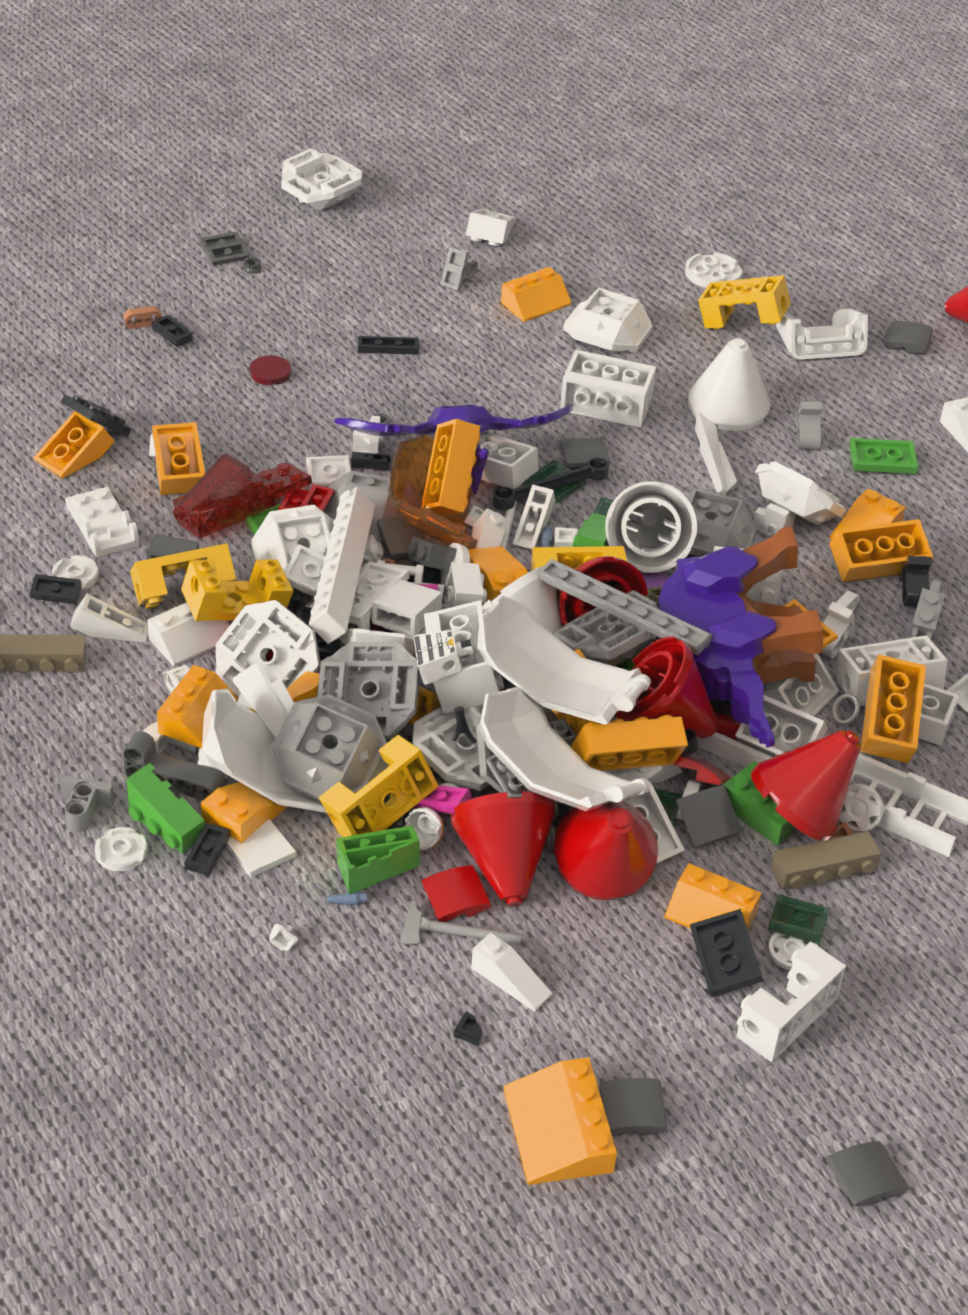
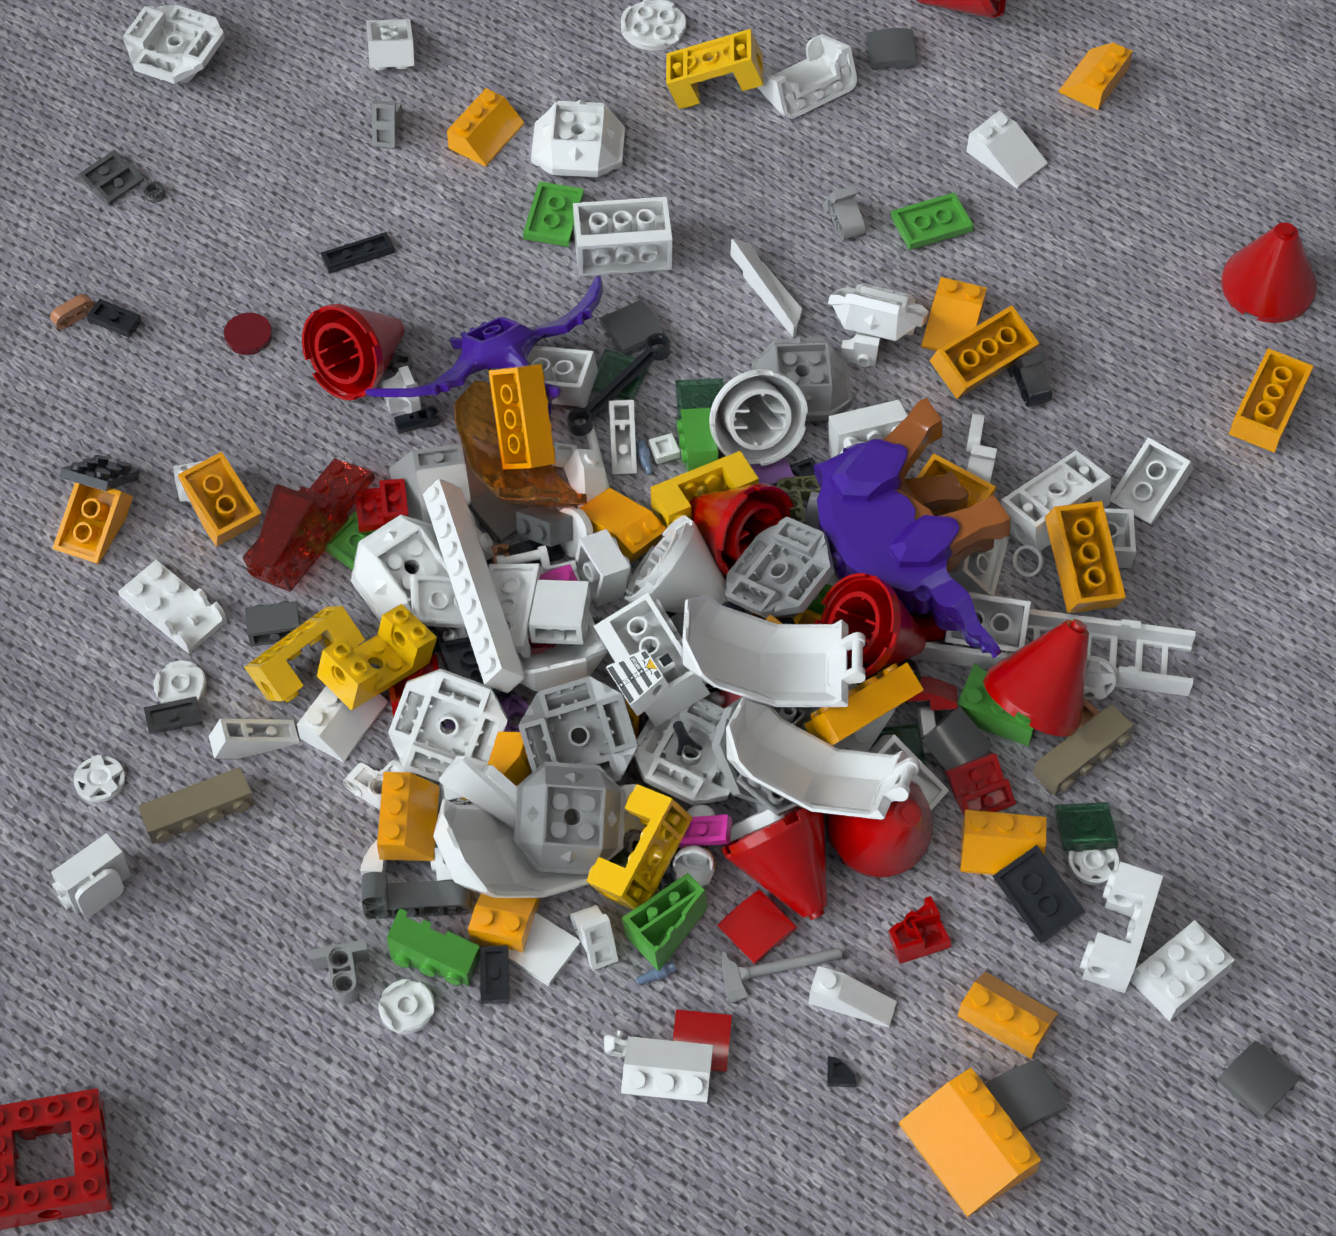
camera: 20 degrees left, 15 degrees up
(308, 851) = (595, 936): none -> white tile
(312, 968) = (667, 1069): none -> white slope
(327, 468) = (378, 448): white tile -> none
(344, 389) = (350, 348): none -> red cone
(358, 959) = (705, 1029): none -> red slope
(554, 362) = (552, 214): none -> bright green plate
(600, 949) = (911, 938): none -> red slope
(623, 605) = (792, 547): light grey tile -> none
(647, 1036) = (1007, 1014): none -> light orange slope
(717, 853) = (980, 785): none -> red slope
(731, 390) = (748, 197): white cone -> none
(834, 1058) = (1182, 970): none -> white brick
(927, 611) = (1059, 417): light grey hinge -> none

